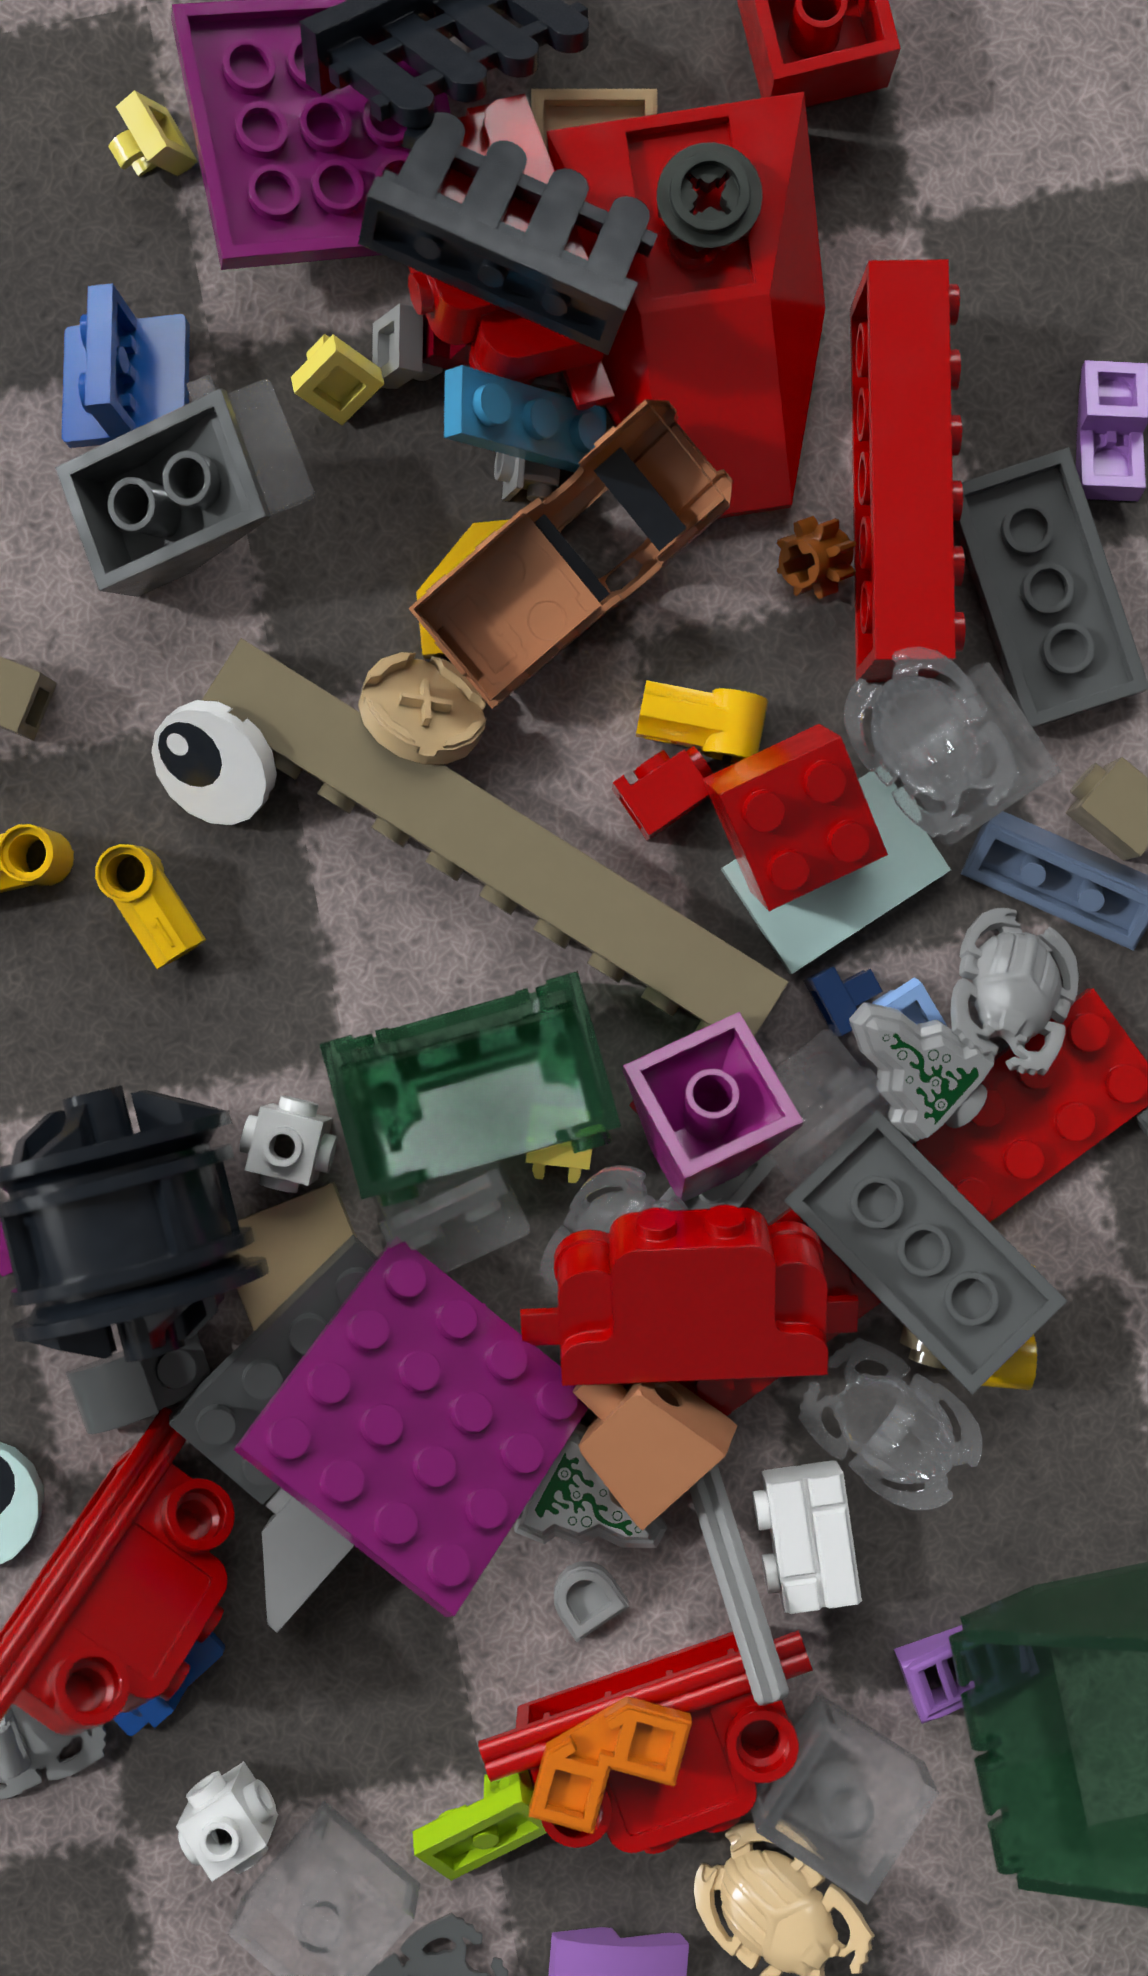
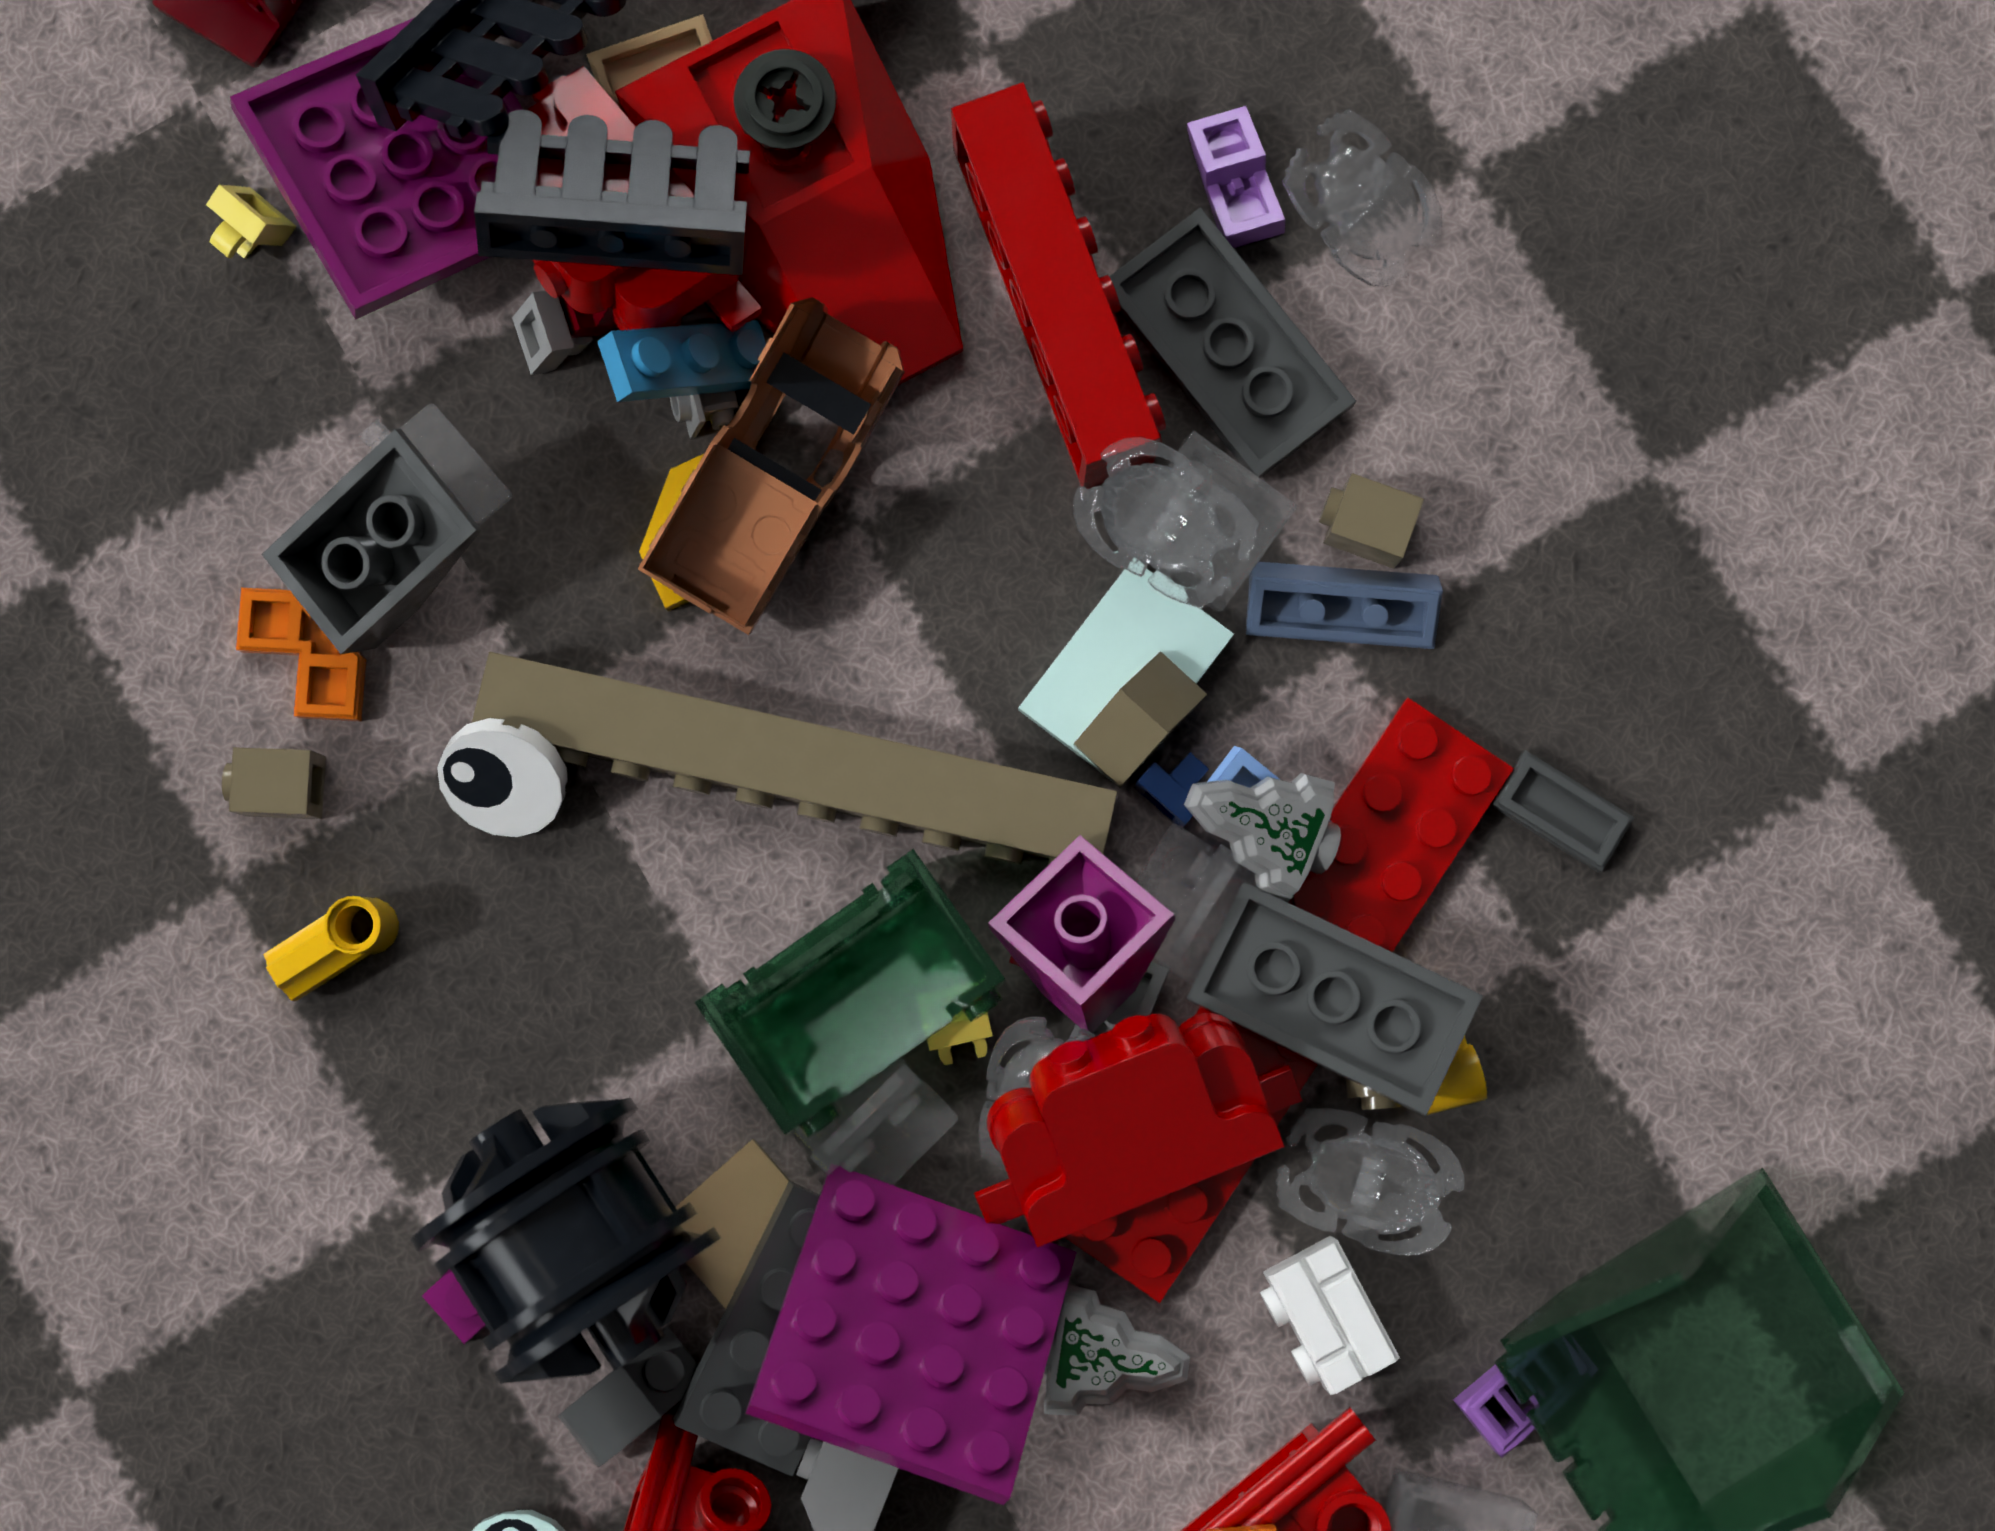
camera: 20 degrees left, 5 degrees down
(79, 613) = (327, 682): none -> orange tile
(121, 369) = (291, 444): bracket -> none
(153, 908) = (491, 936): yellow piece -> none
(312, 1141) = (723, 1115): white brick -> none
(336, 378) = (496, 381): light yellow tile -> none
(422, 709) = (682, 658): tan tile -> none
(587, 1598) = (1139, 1456): light grey tile -> none
(651, 1442) = (1141, 1274): nougat torso -> none
(664, 790) = (938, 654): red brick -> none
(714, 722) = (963, 575): yellow piece -> none
(738, 1589) = (1267, 1374): light grey axle -> none
(795, 816) = (1067, 634): red brick -> none
(816, 557) = (1002, 389): dark orange gear -> none
(834, 920) = (1139, 718): none -> dark tan slope
(1014, 989) = (1332, 723): light grey shield -> none

